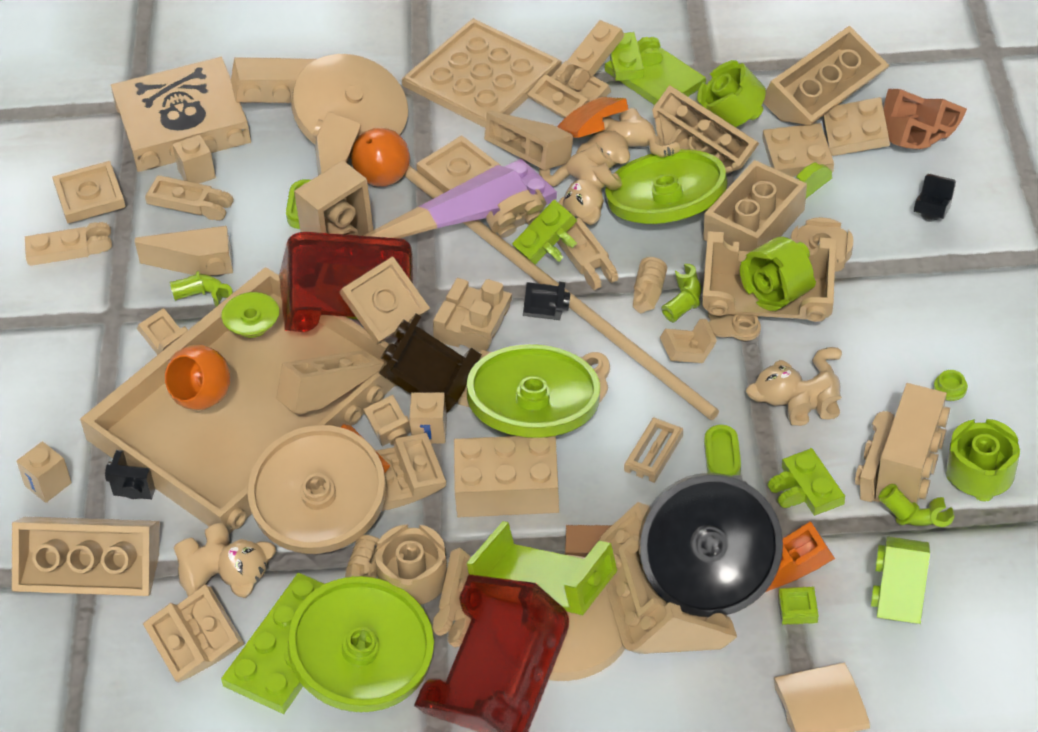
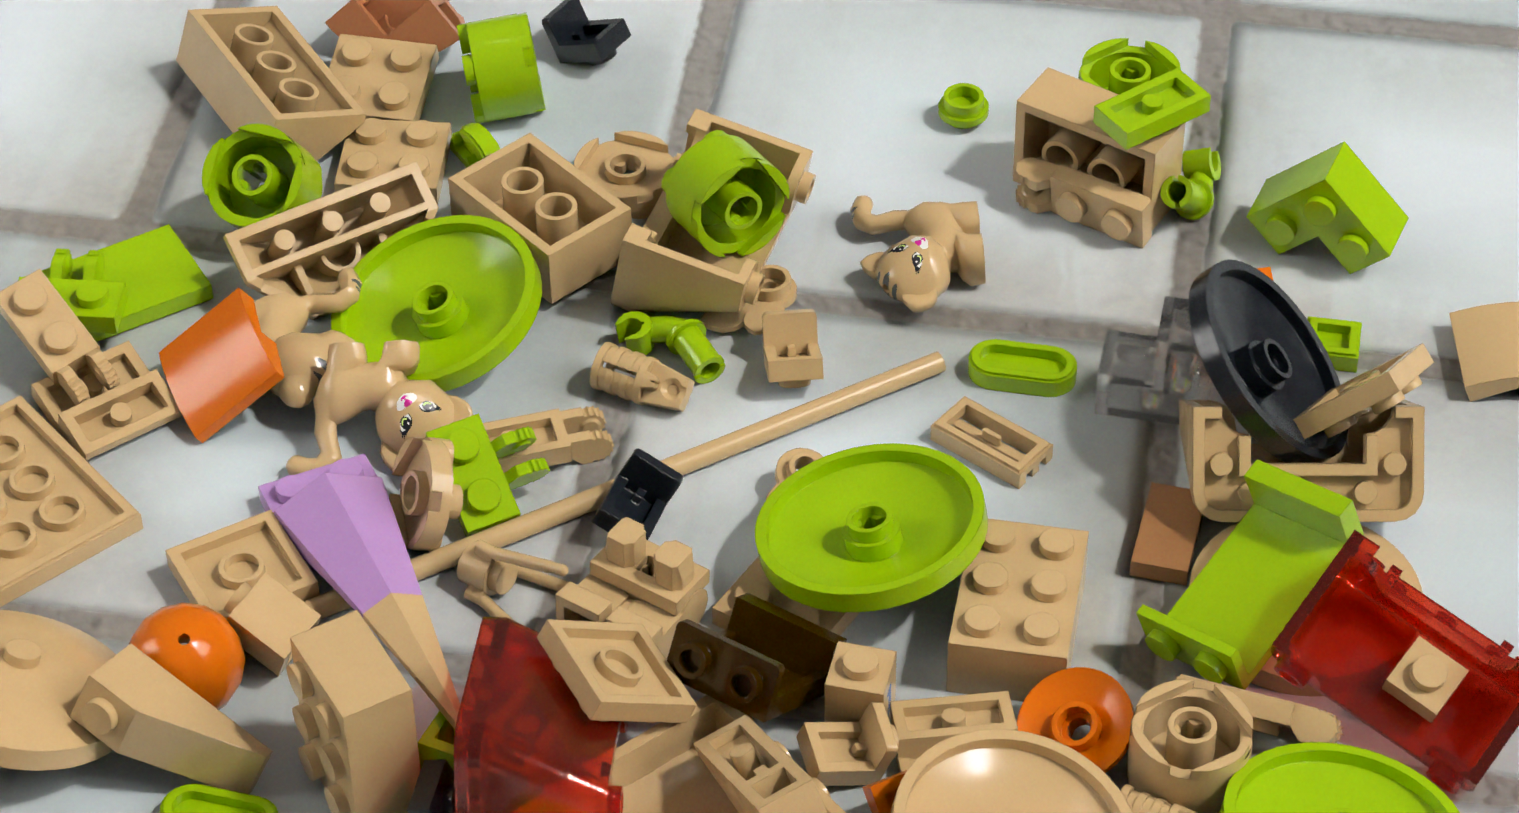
camera: 80 degrees left, 5 degrees down
(415, 180) = (266, 620): none -> tan brick
(427, 509) = (1077, 699): none -> orange dish
(483, 258) = (495, 570): none -> tan plant
(491, 670) = (1425, 679): none -> tan plate
(530, 140) = (224, 462): tan slope -> none
(688, 592) = (1372, 390): none -> tan plate
(809, 481) = (1105, 284): lime hinge -> none
(875, 166) = (501, 67): none -> lime brick
(911, 443) = (1151, 108): none -> lime plate

